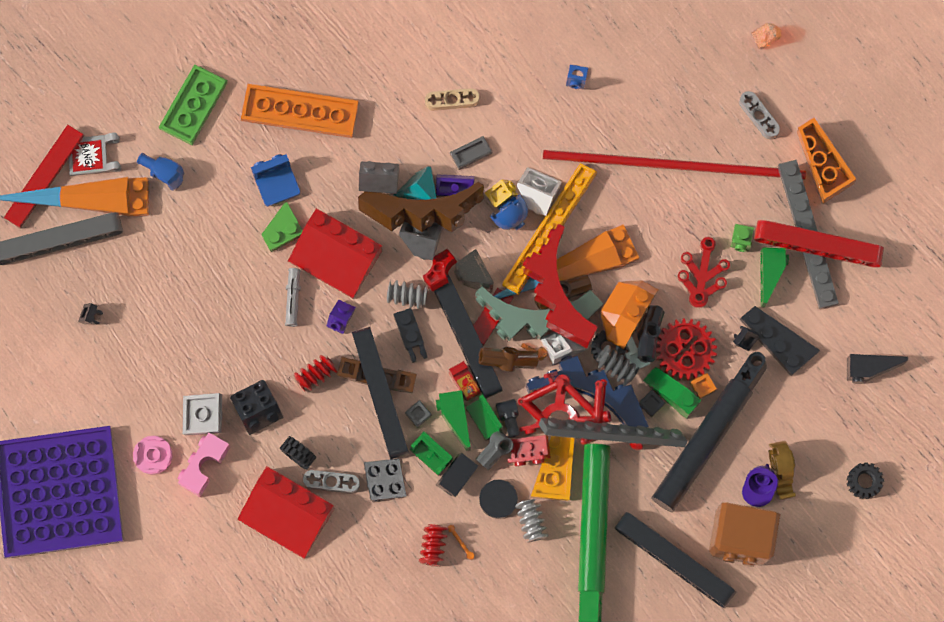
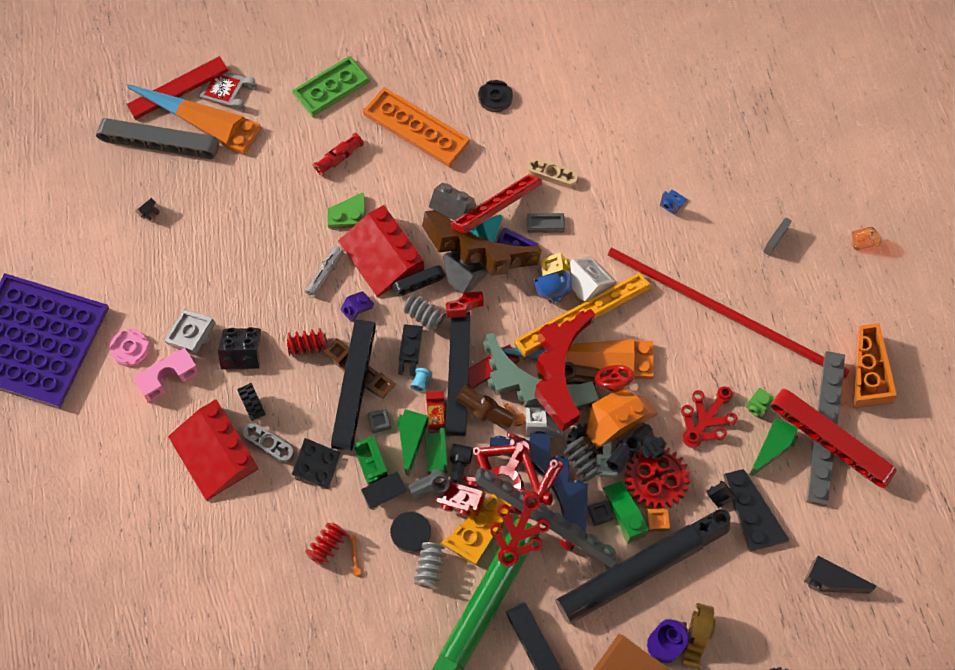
camera: 30 degrees right, 10 degrees down
(163, 169) = (276, 123): blue piece -> none
(242, 172) = (338, 154): none -> red piece
(275, 180) = (364, 170): blue bracket -> none
(357, 42) = (495, 96): none -> black tile
(384, 265) = (418, 281): none -> black beam
(420, 158) = (496, 203): none -> red tile
(436, 359) = (421, 380): none -> medium azure bush
(473, 272) = (492, 318): clear smoke slope -> none
(598, 457) = (518, 532): none -> red plant
(609, 280) = (614, 381): none -> red piece
(672, 325) = (654, 447): none -> black gear
(687, 69) = (777, 236): none -> dark grey tile
(760, 107) = (824, 311): light grey beam -> none

